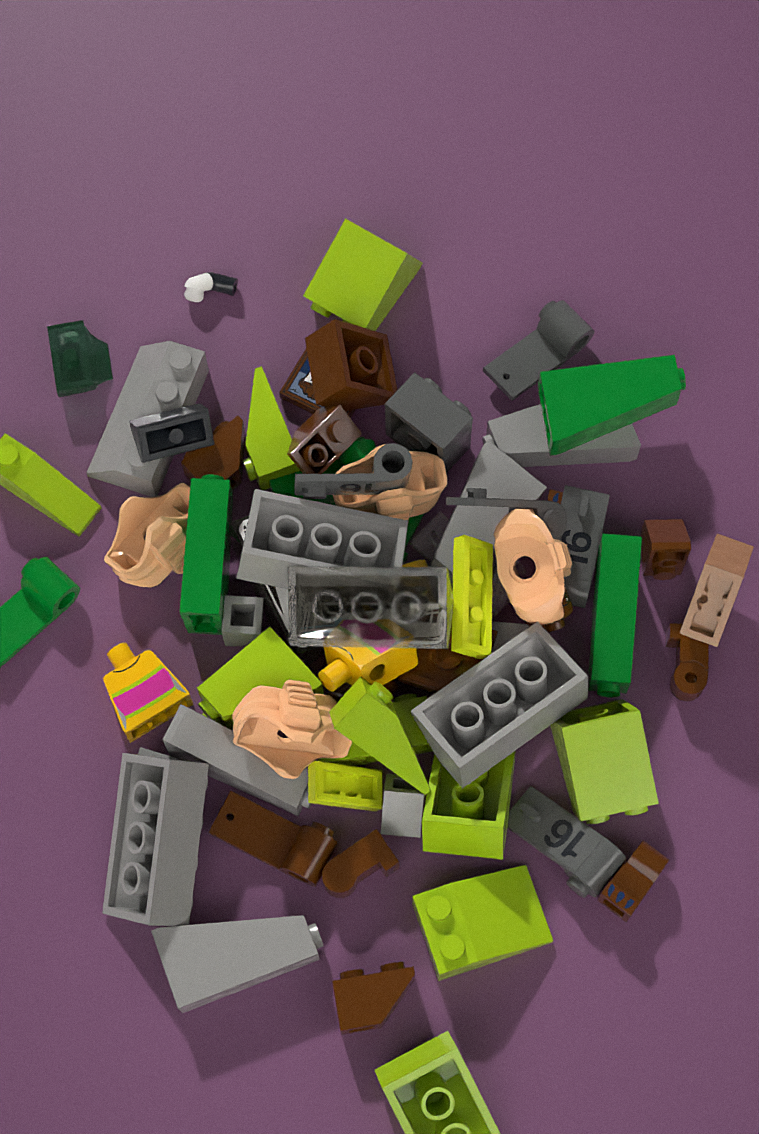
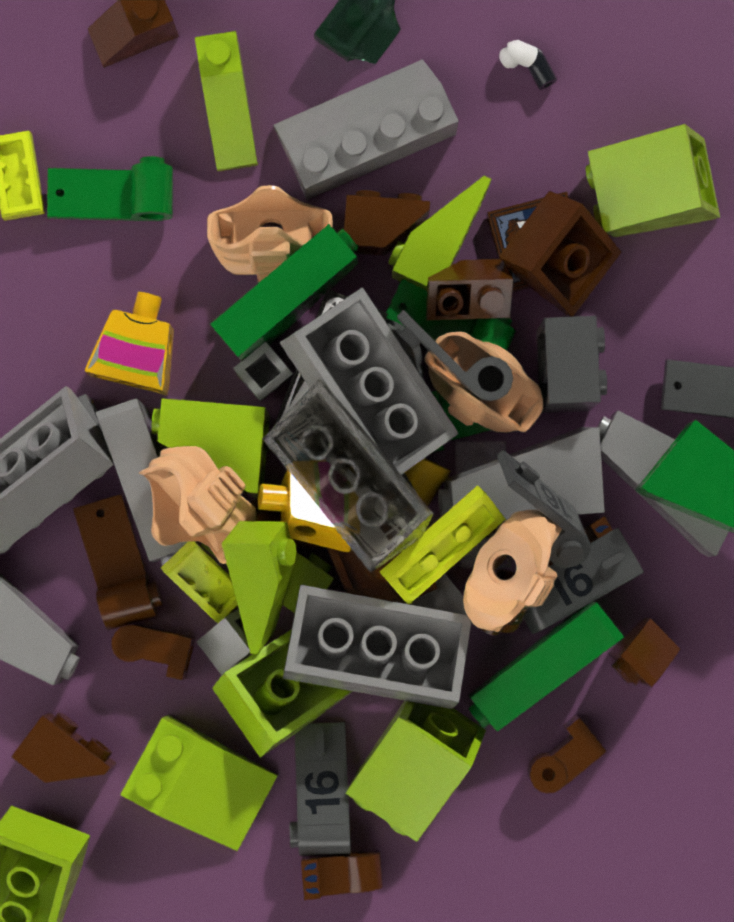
camera: 45 degrees right, 15 degrees up
(172, 432) = (360, 165): black slope -> none
(716, 590) = (638, 736): medium nougat window -> none

